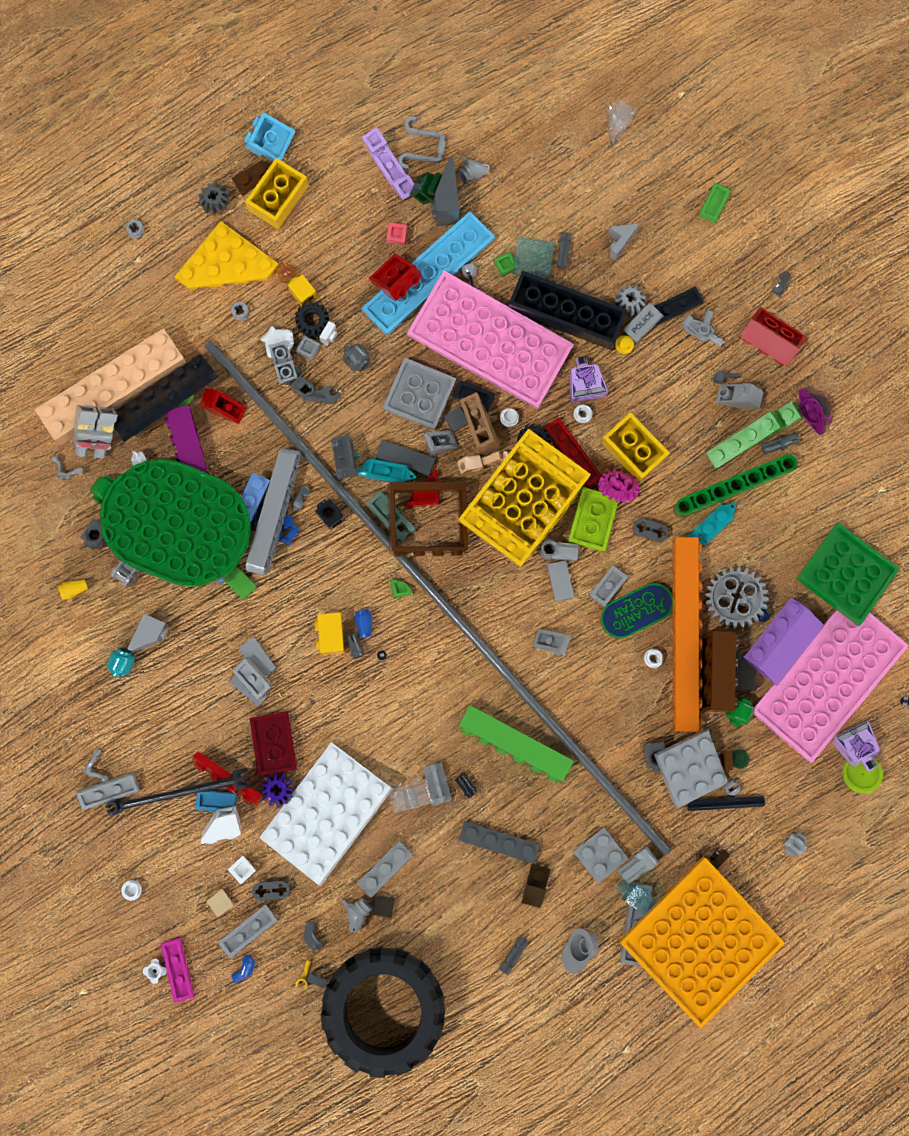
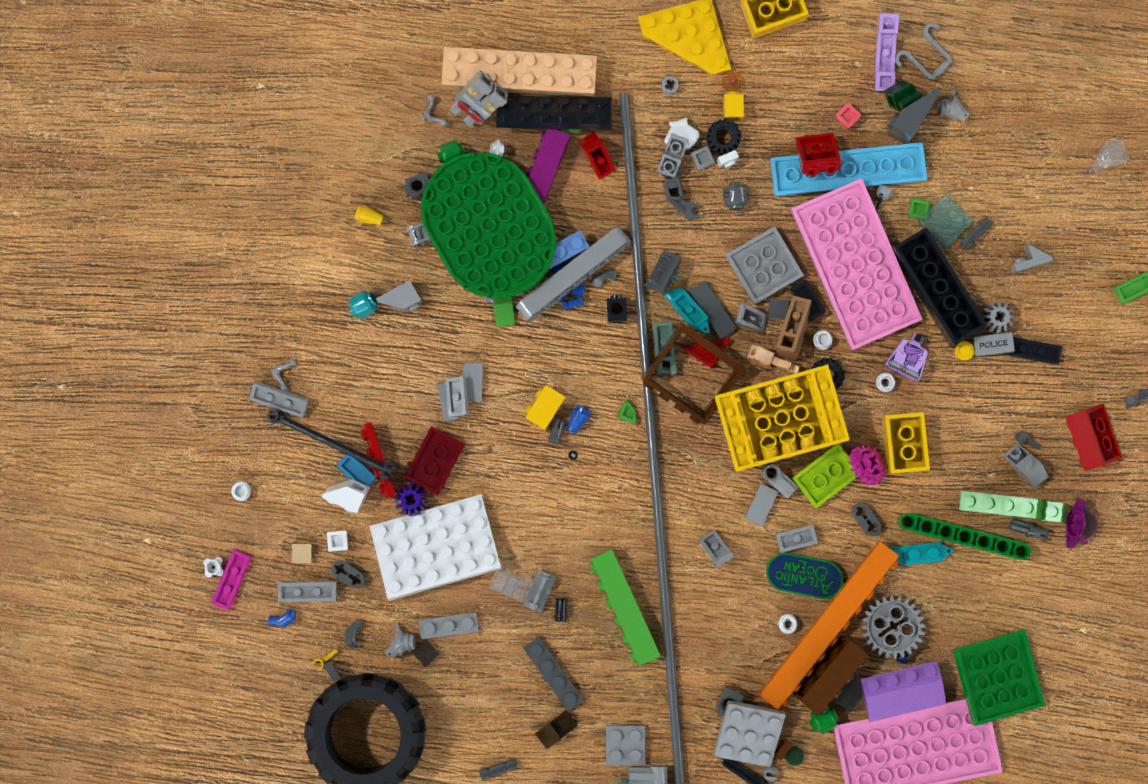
camera: 40 degrees right, 5 degrees up
(570, 448) = (853, 406): red tile -> none
(701, 330) = (1038, 387): light grey piece -> none

